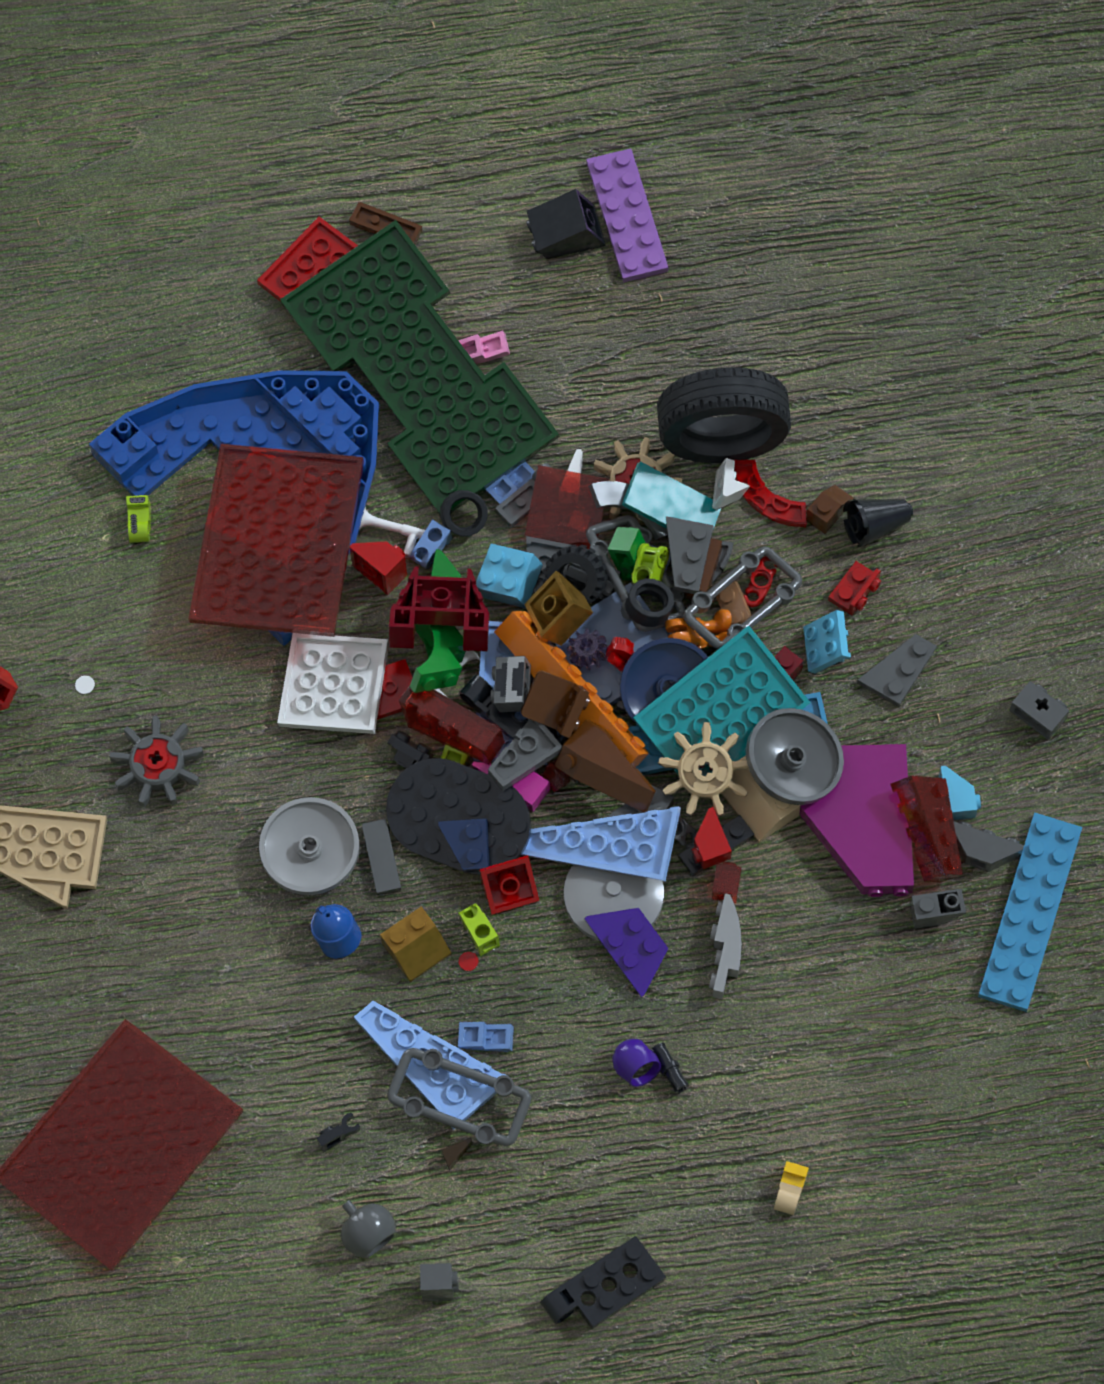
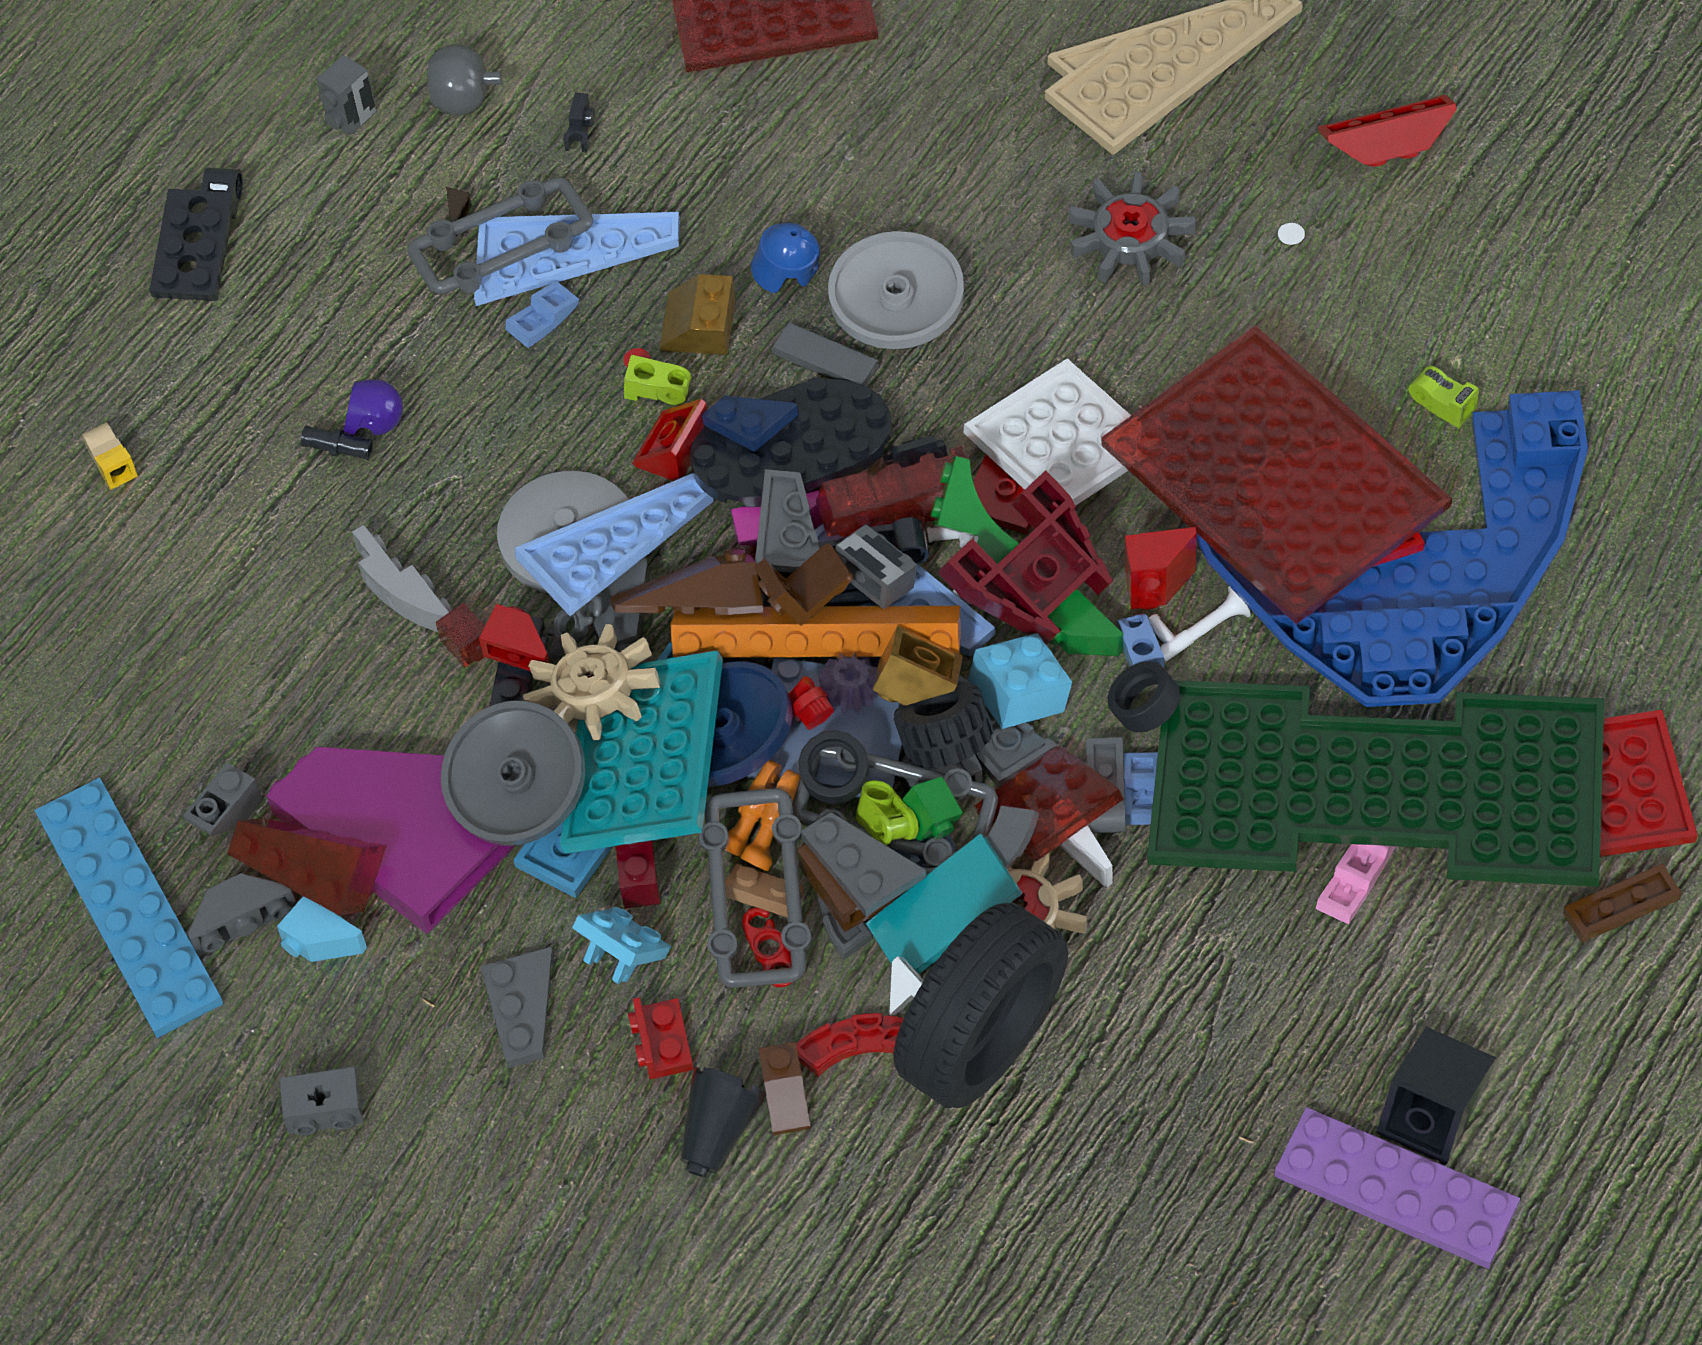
camera: 135 degrees right, 10 degrees down
(631, 944) = (494, 496): dark purple wing -> none

